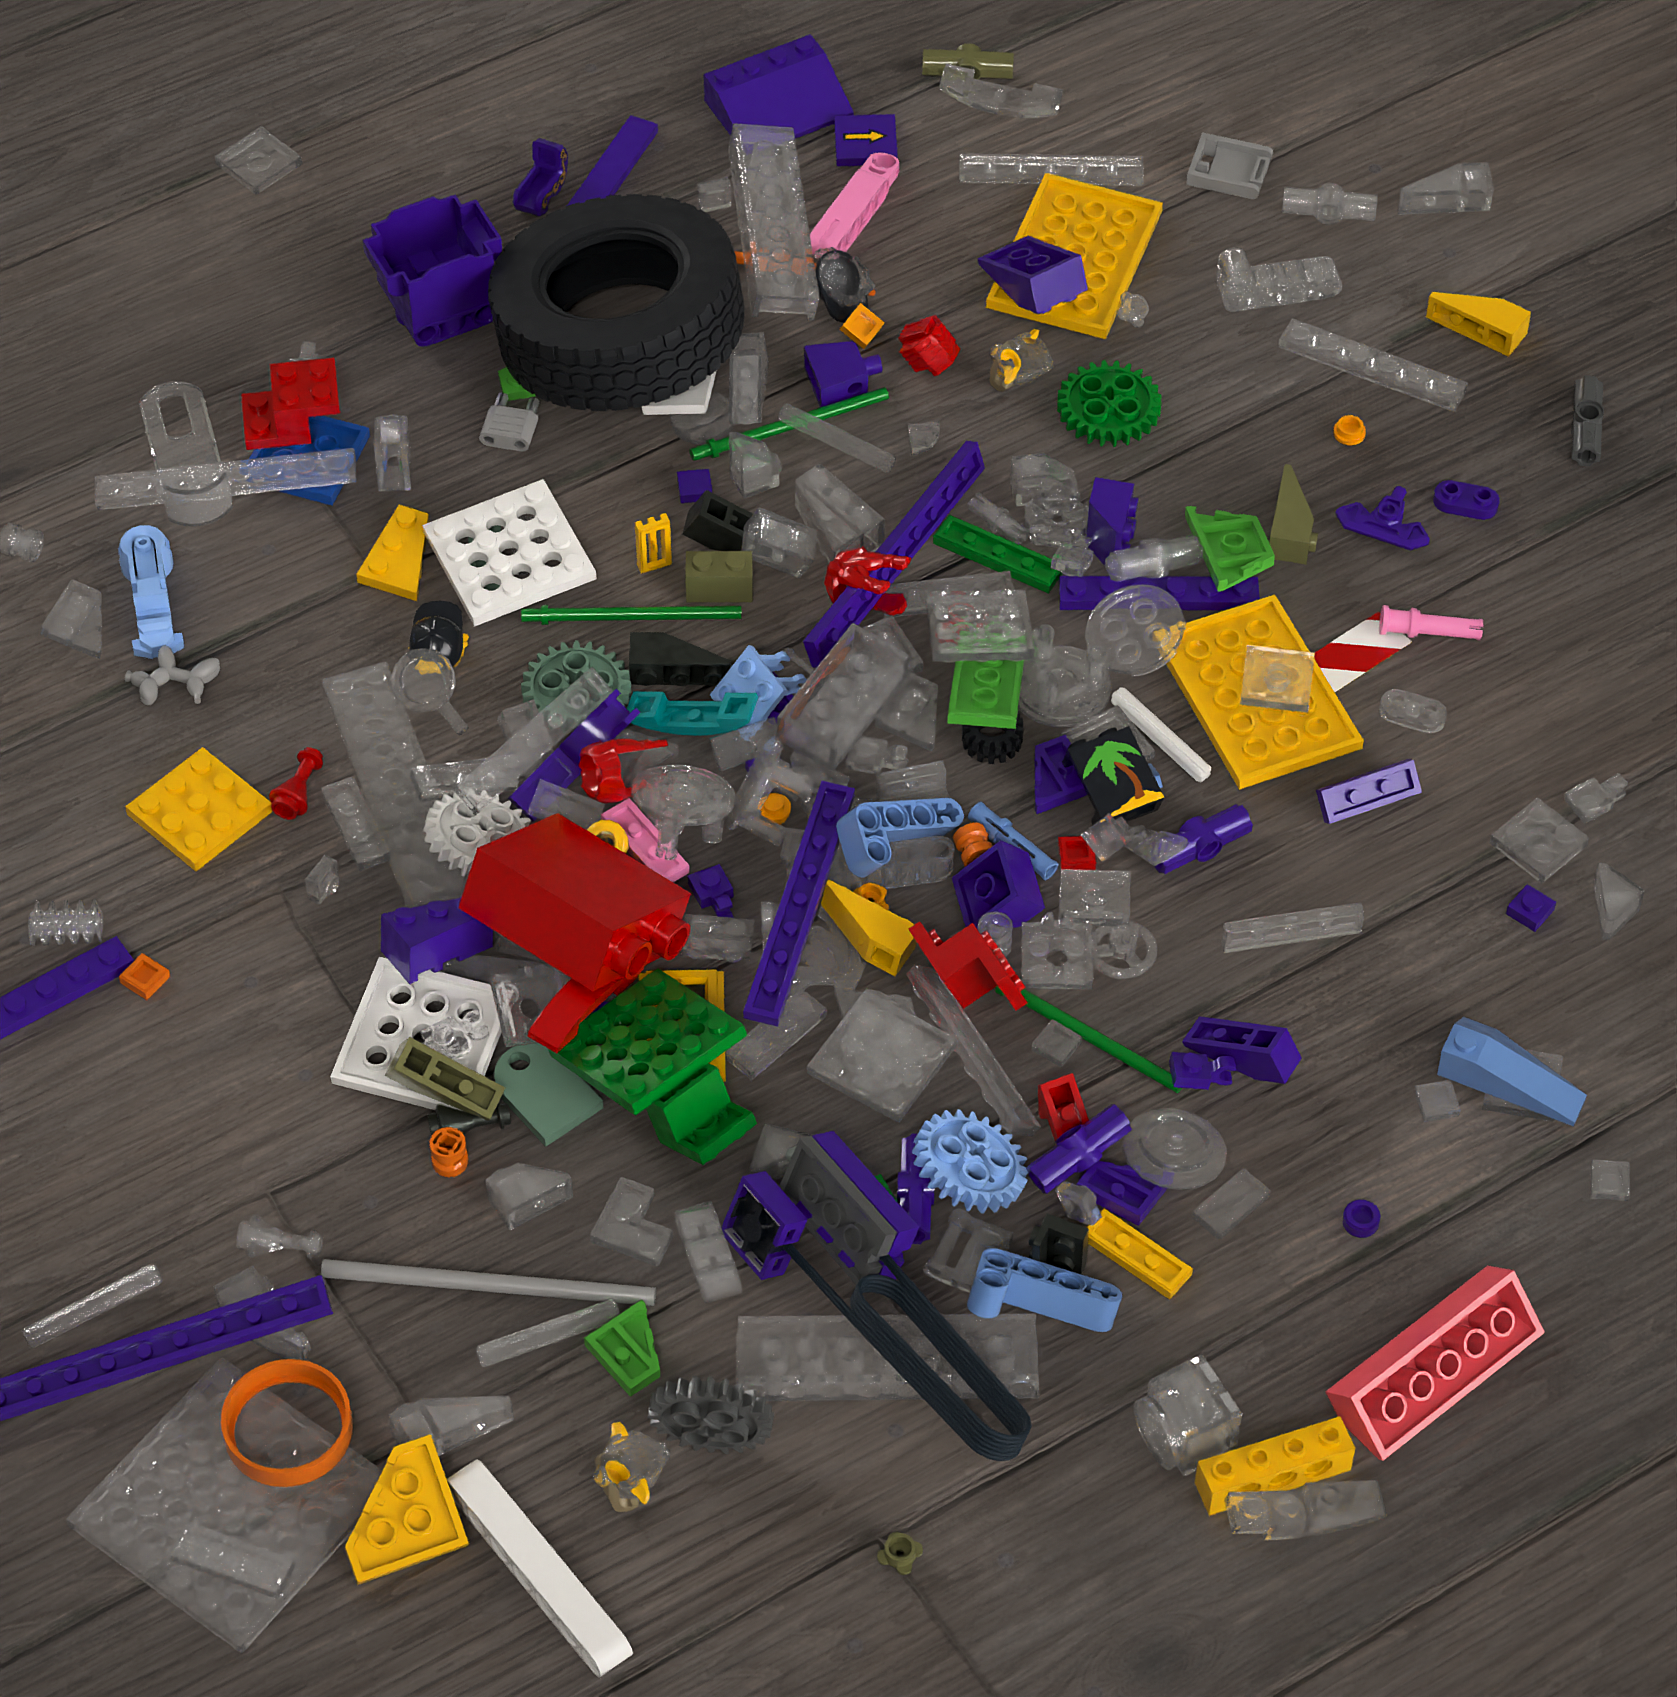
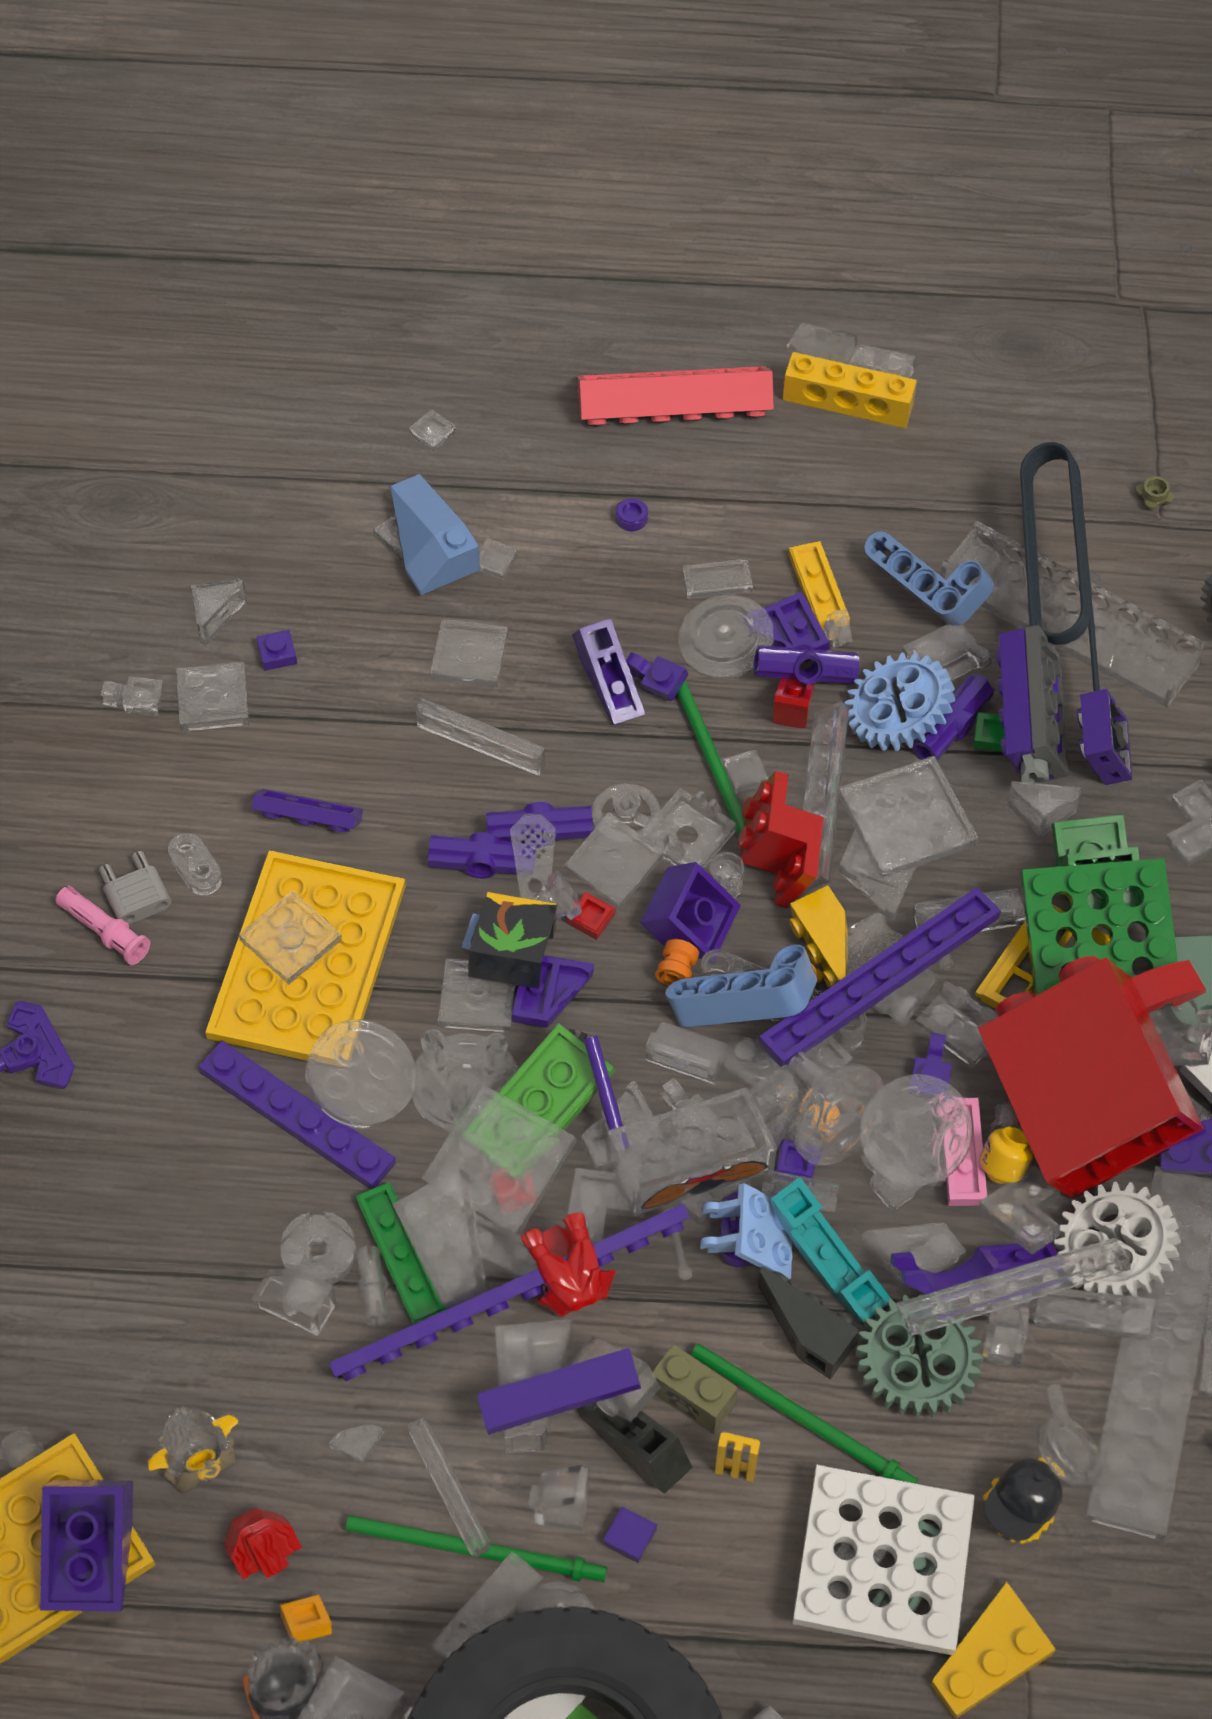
camera: 145 degrees left, 5 degrees up
(602, 767) = (958, 1216): red piece -> none
(708, 1251) = (1154, 767): clear beam -> none
(801, 489) = (558, 1391): none -> dark purple tile
(838, 371) = (379, 1571): dark purple torso -> none
(939, 696) = (603, 1082): none -> dark purple bar
(969, 553) = (445, 1236): none -> clear wedge
(1041, 863) = (640, 966): medium blue pin -> none
(1060, 1244) = (886, 599): pearl dark grey bracket -> none
(1073, 559) = (348, 1183): clear plate -> none
(1109, 403) = (129, 1373): green gear -> none
(1110, 516) = (283, 1184): dark purple slope -> none
(1153, 558) = (298, 1130): clear piece -> none
(1161, 735) = (424, 972): white axle -> none
(1178, 889) = (568, 821): none -> dark purple piece
(1187, 1416) = (889, 438): clear piece -> none
(1231, 545) = (194, 1108): bright green wing -> none
(1292, 523) = (117, 1097): olive slope -> none
(1357, 652) = (185, 953): sticker -> none
(1375, 1003) = (469, 653): none -> clear tile
(1430, 662) = (136, 893): none -> light grey piece

